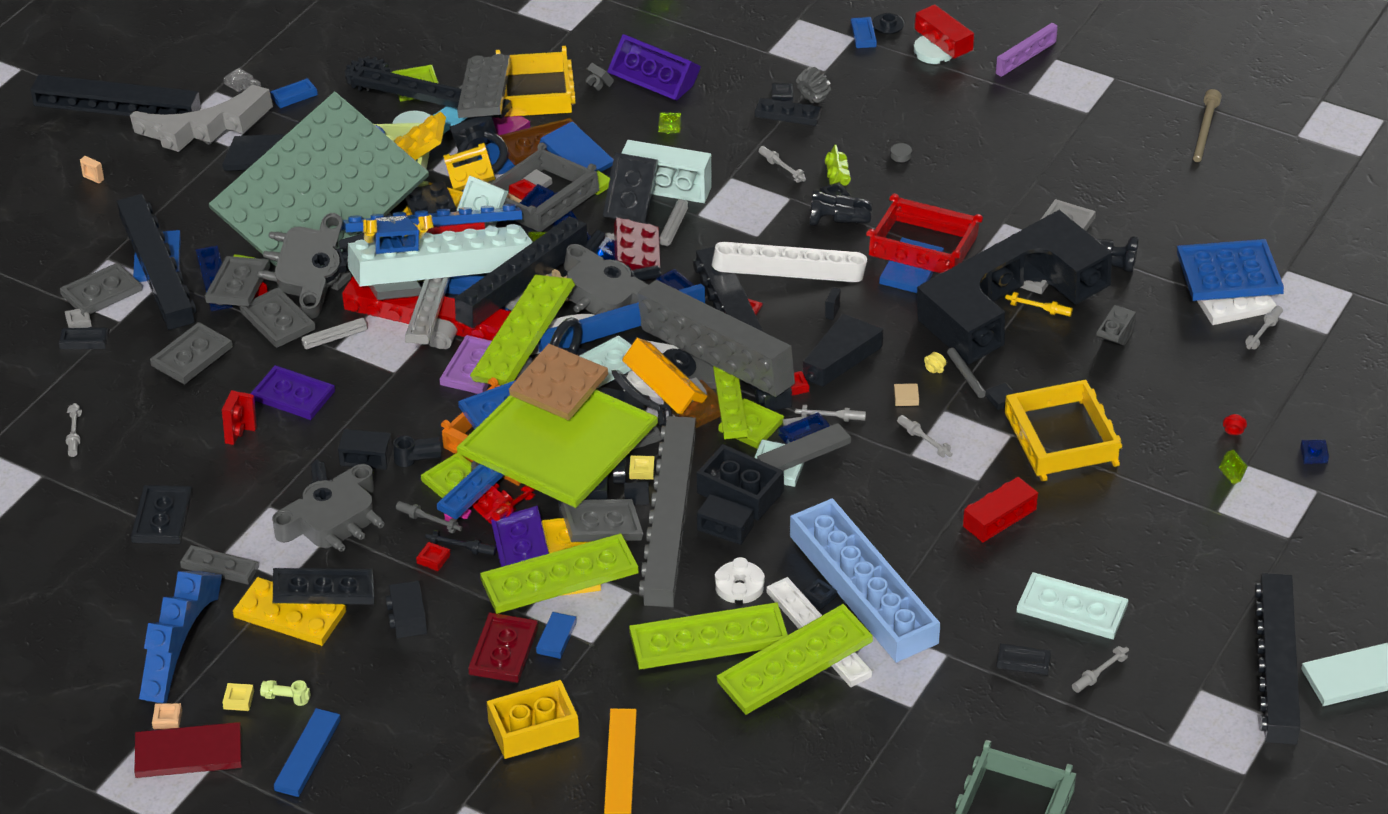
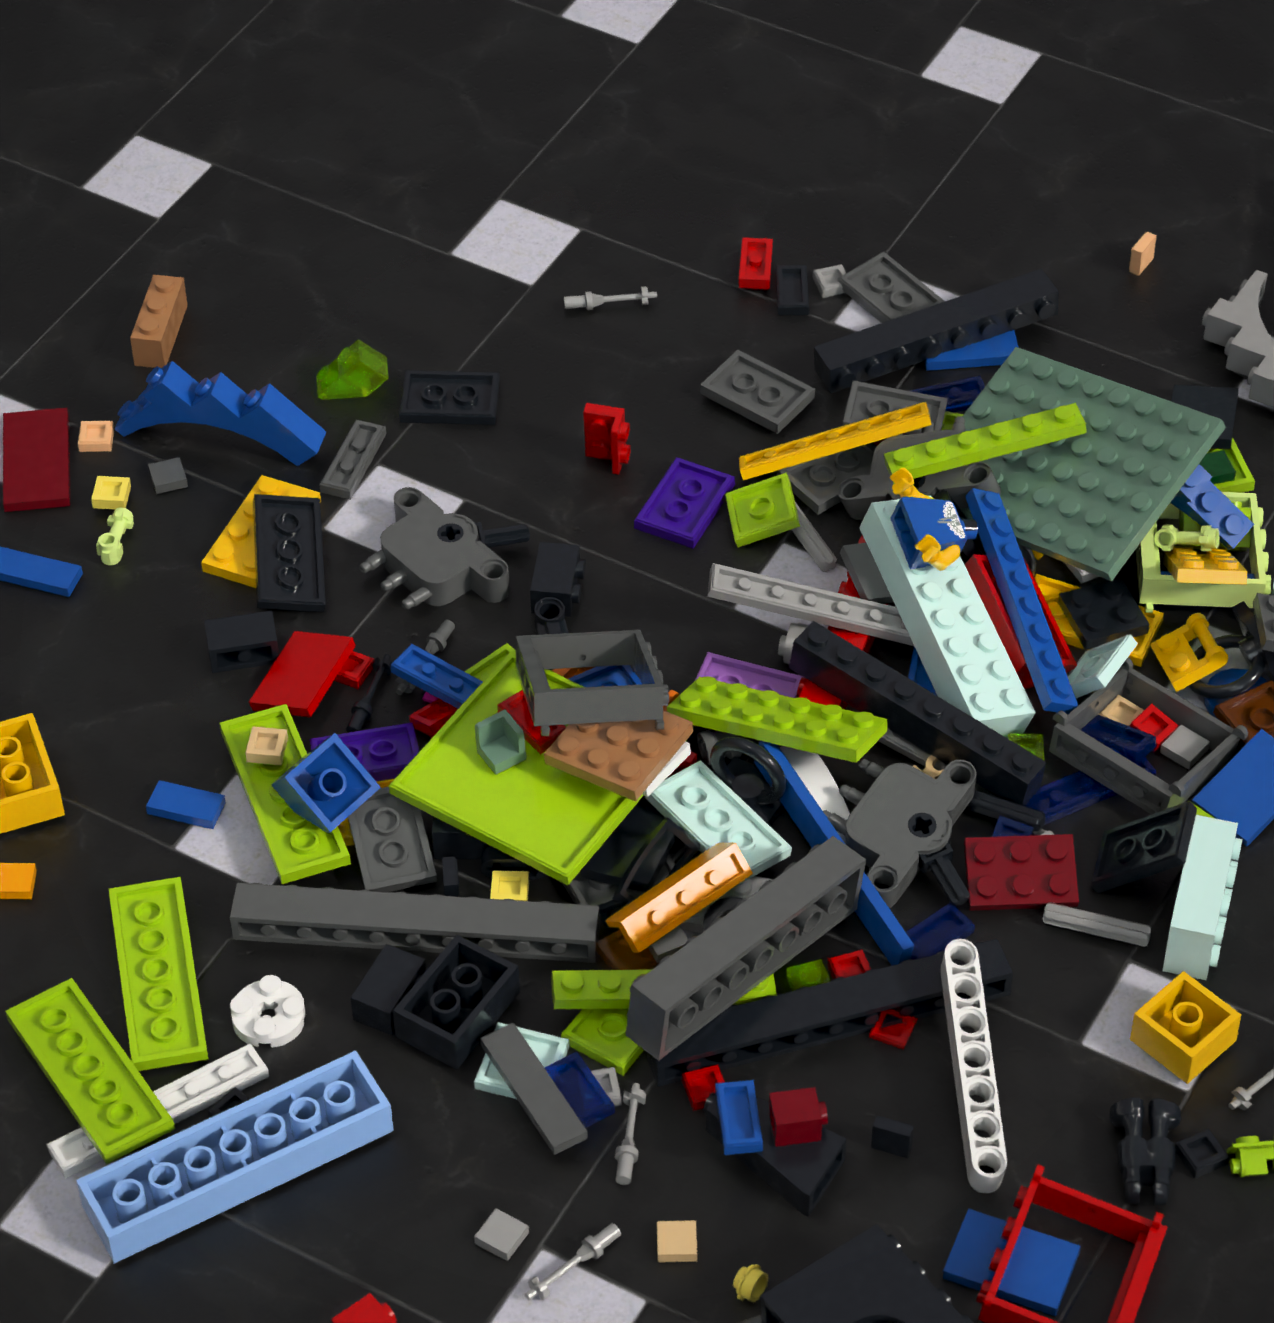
camera: 90 degrees right, 5 degrees up
(48, 678) = (159, 321): none -> medium nougat brick
(54, 352) = (755, 263): none -> red plate
(133, 564) = (353, 373): none -> clear neon green slope
(220, 668) = (167, 475): none -> dark grey tile
(264, 305) = (834, 440): none -> yellow tile
(310, 213) = (988, 442): none -> lime plate
(312, 350) = (762, 509): none -> lime tile
(443, 575) = (303, 672): none -> red tile
(503, 647) = (163, 746): dark red plate -> none
(506, 508) = (413, 726): red piece -> none
(520, 405) = (590, 703): none -> dark grey window
(523, 433) = (519, 711): none -> red tile
(527, 572) = (266, 745): none -> tan plate
(547, 442) = (500, 741): none -> sand green panel
(571, 536) = (326, 784): none -> blue slope
(757, 185) = (1185, 1027): none -> yellow brick
(832, 353) = (738, 1117): none -> blue tile
(836, 325) = (796, 1116): none -> dark red brick
(906, 468) = (501, 1234): none -> light grey tile

